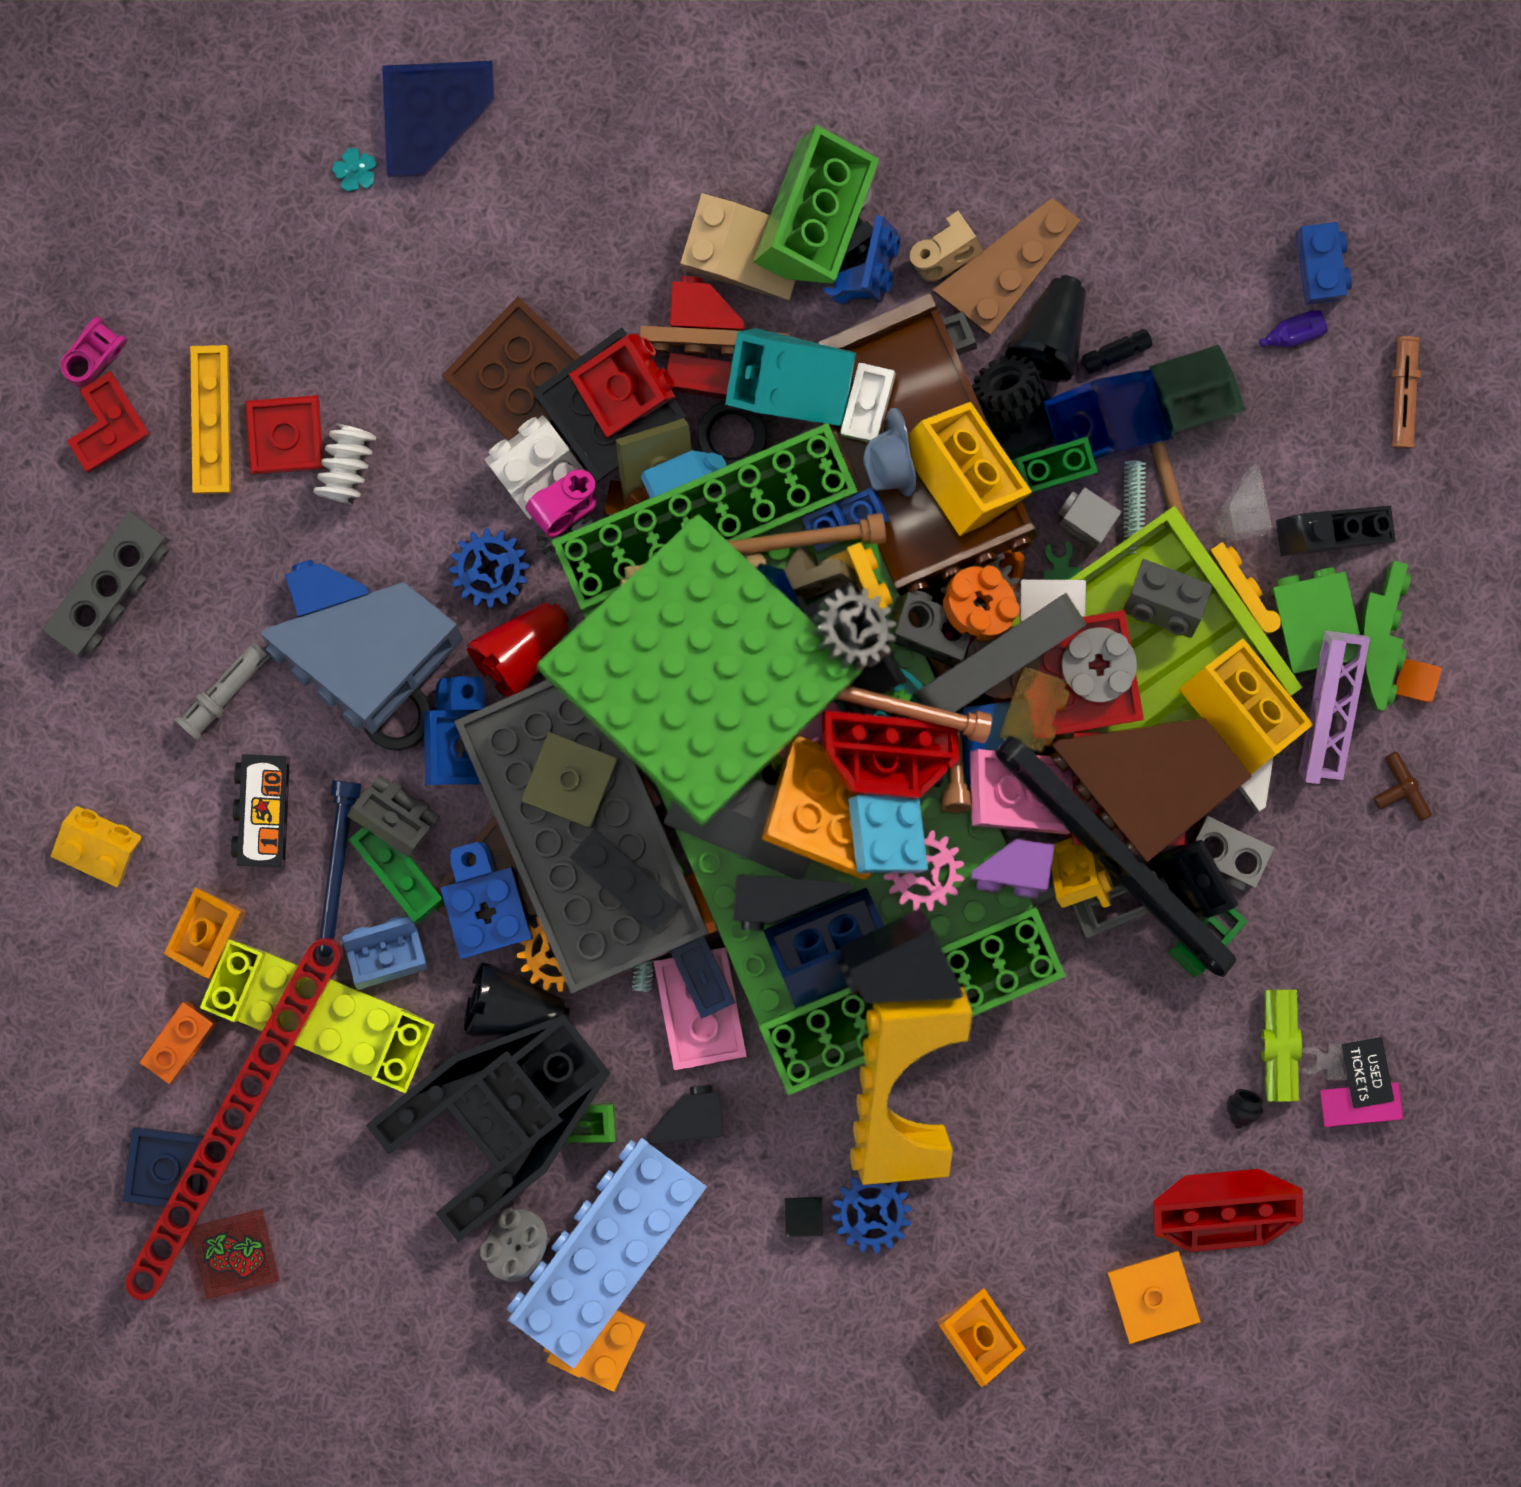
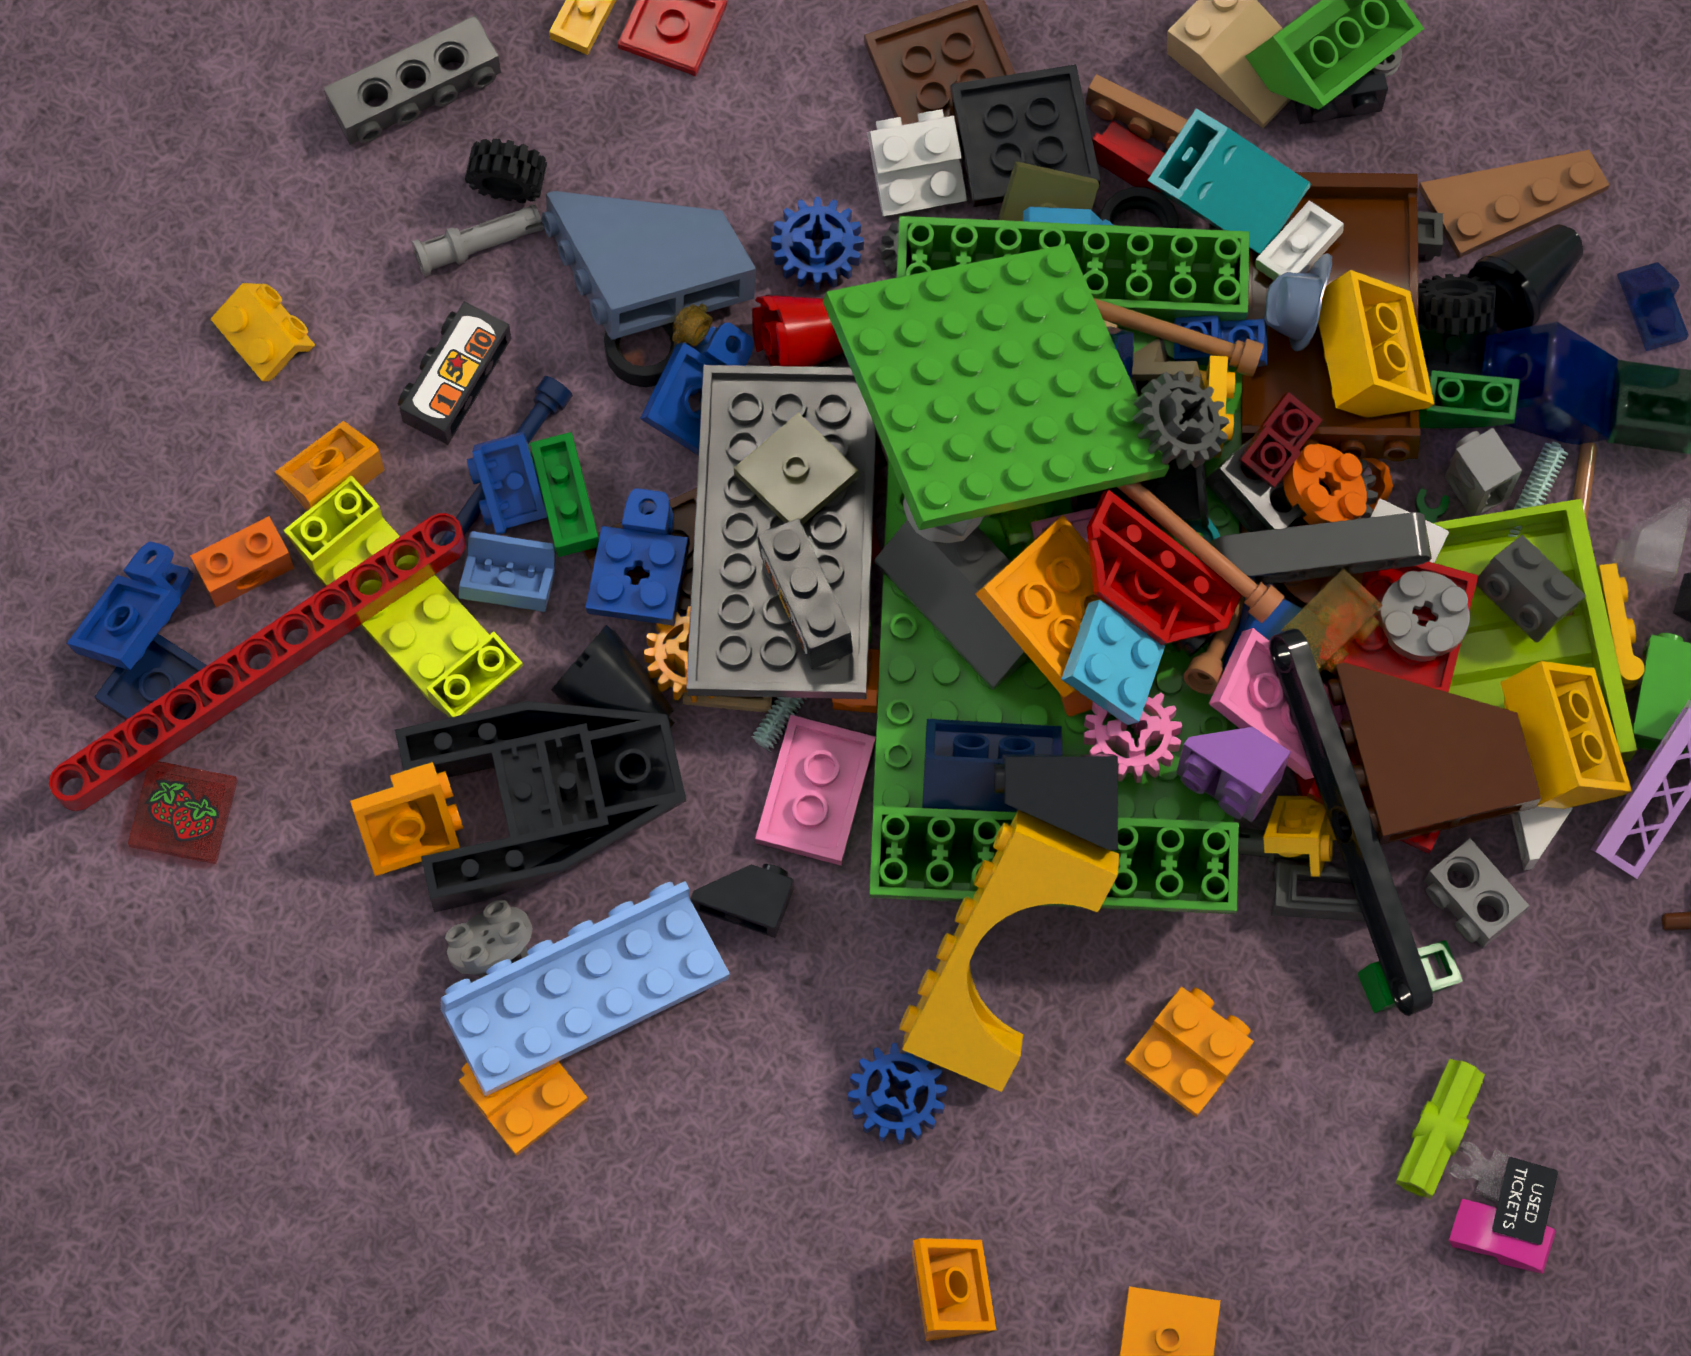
camera: 25 degrees right, 15 degrees down
(112, 1110) = (139, 601): none -> blue plate
(219, 629) = (505, 170): none -> black tyre
(320, 587) = (632, 176): blue slope -> none
(344, 464) = (718, 72): white piece -> none
(348, 883) = (508, 482): none -> blue bracket
(393, 815) = (589, 436): dark grey plate -> none
(413, 1187) = (408, 819): none -> light orange plate
(428, 691) = (692, 324): none -> clear yellow plate
(562, 503) = (928, 199): dark pink piece -> none
(596, 1125) = (639, 855): bright green slope -> none
(623, 383) = (1051, 111): red plate -> none
(701, 307) = (1167, 83): red slope -> none
(702, 977) = (835, 750): dark blue plate -> none
(775, 899) = (966, 685): black slope -> none
(803, 1216) = (819, 1066): black slope -> none
(873, 277) = (1362, 134): blue plate -> none
(928, 587) = (1280, 439): none -> dark red slope
(945, 250) = (1452, 148): tan leg -> none
(1071, 1073) = (1190, 1049): none -> light orange plate
(1117, 351) = (1599, 330): black axle -> none
(1157, 304) = (1653, 306): none -> clear blue slope
(1195, 879) = (1429, 895): black slope -> none
(1227, 1210) = (1295, 1279): red wedge -> none
(1244, 1107) = (1366, 1178): black plate -> none

